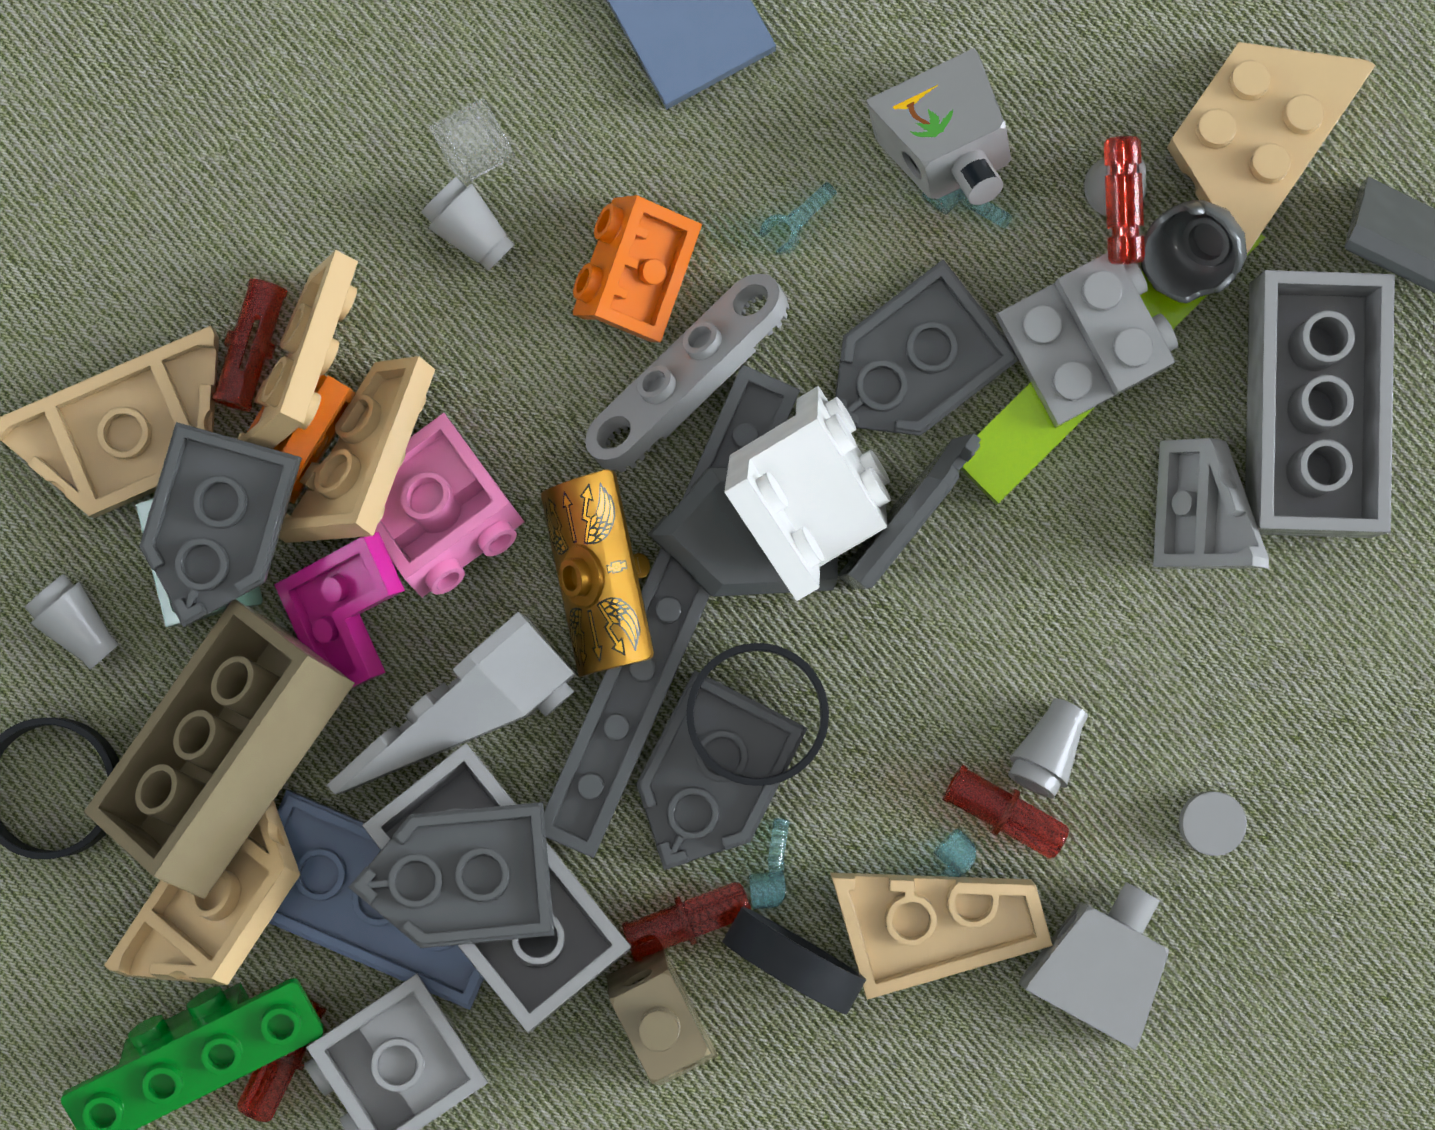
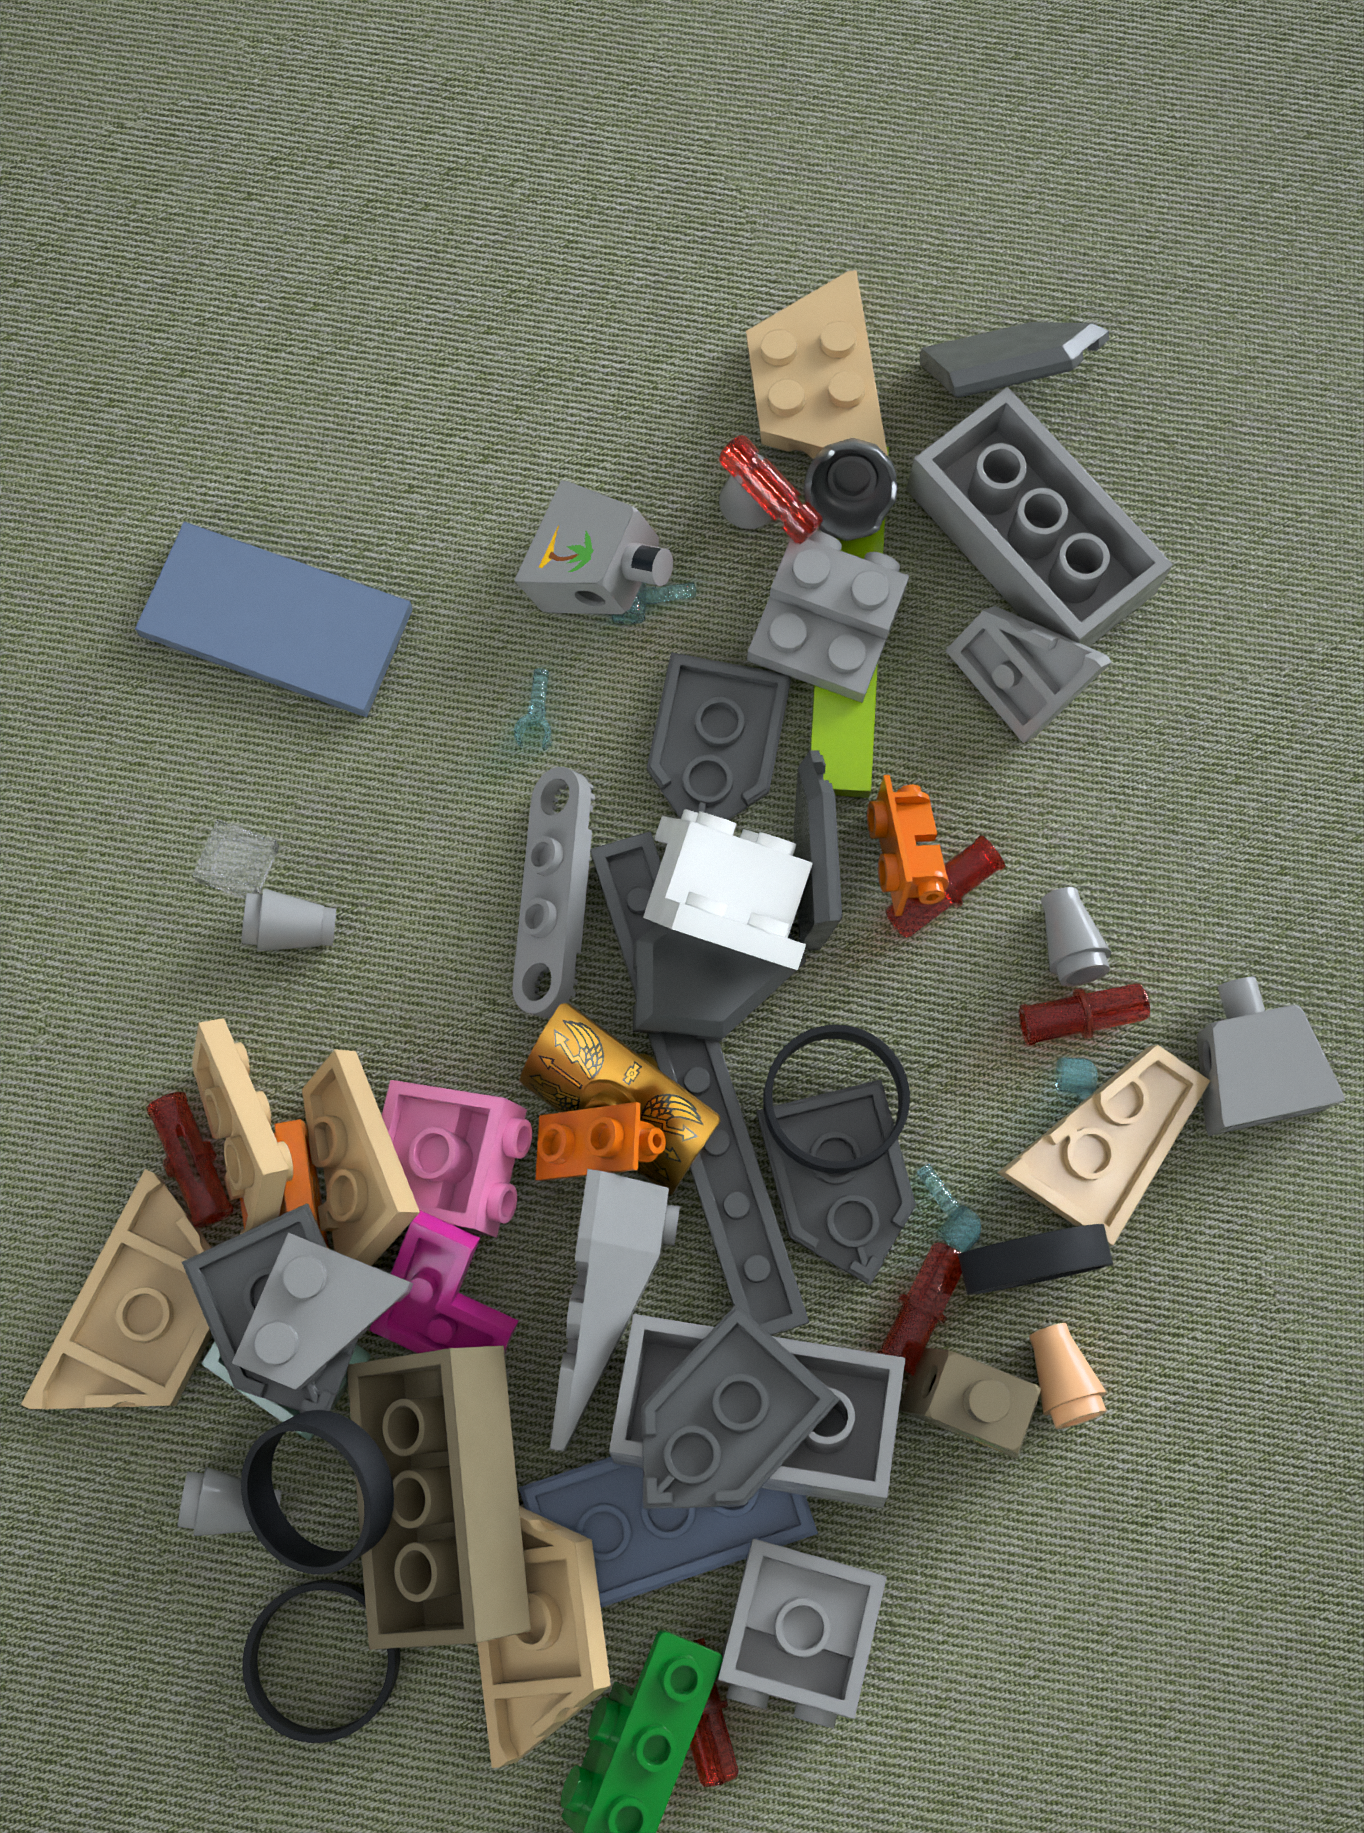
camera: 45 degrees left, 10 degrees down
(88, 669) = (271, 1524): none -> black tyre
(238, 541) = (313, 1311): none -> light grey wing
(548, 593) = (595, 1139): none -> orange hinge
(635, 267) = (444, 847): orange bracket -> none
(745, 1061) = (1066, 1380): none -> light nougat cone
(967, 587) = (903, 868): none -> orange hinge
(986, 626) = (964, 874): none -> clear red axle
(1212, 823) = (1237, 890): light grey tile -> none

